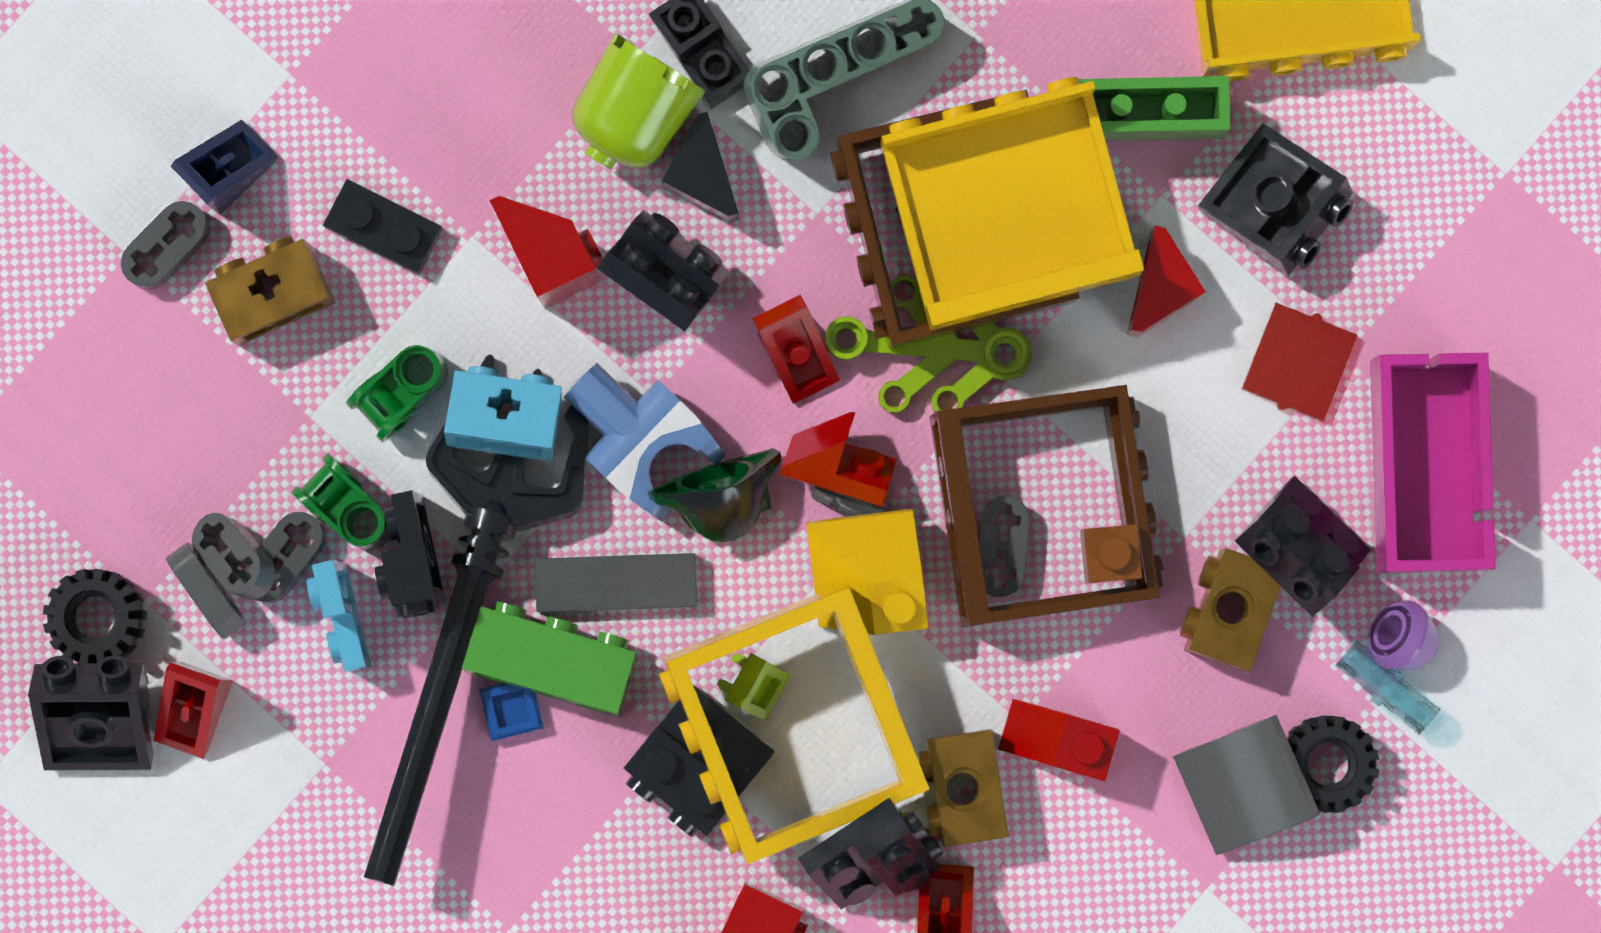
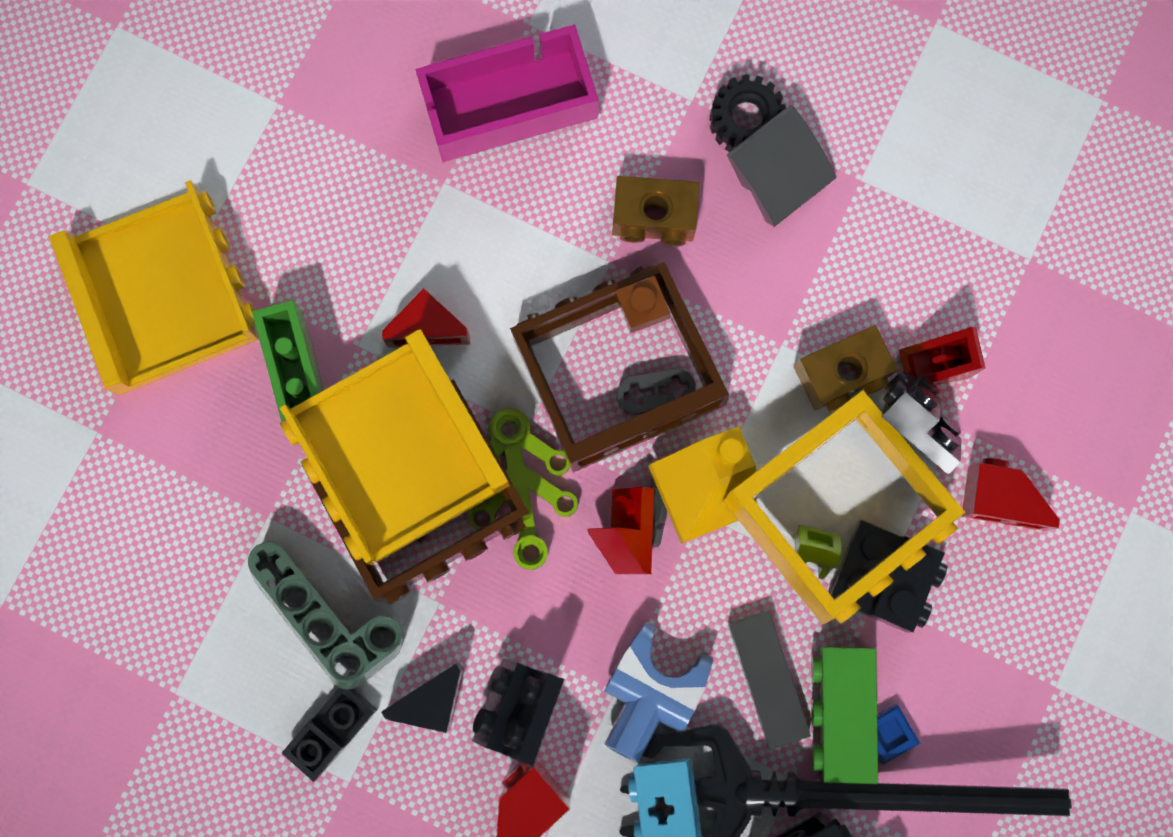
camera: 110 degrees left, 5 degrees down
(632, 106) = (391, 774): lime cylinder -> none
(722, 498) = (682, 614): hat -> none
(796, 349) = (550, 588): red slope -> none
(1058, 739) = (789, 309): red slope -> none
(1278, 200) = (338, 256): black plate -> none
(1299, 362) = (456, 213): clear red piece -> none
(1303, 546) = (596, 168): black plate -> none
(1388, 688) = (679, 88): clear light blue pin -> none
(1403, 637) = (640, 85): medium lavender cone -> none

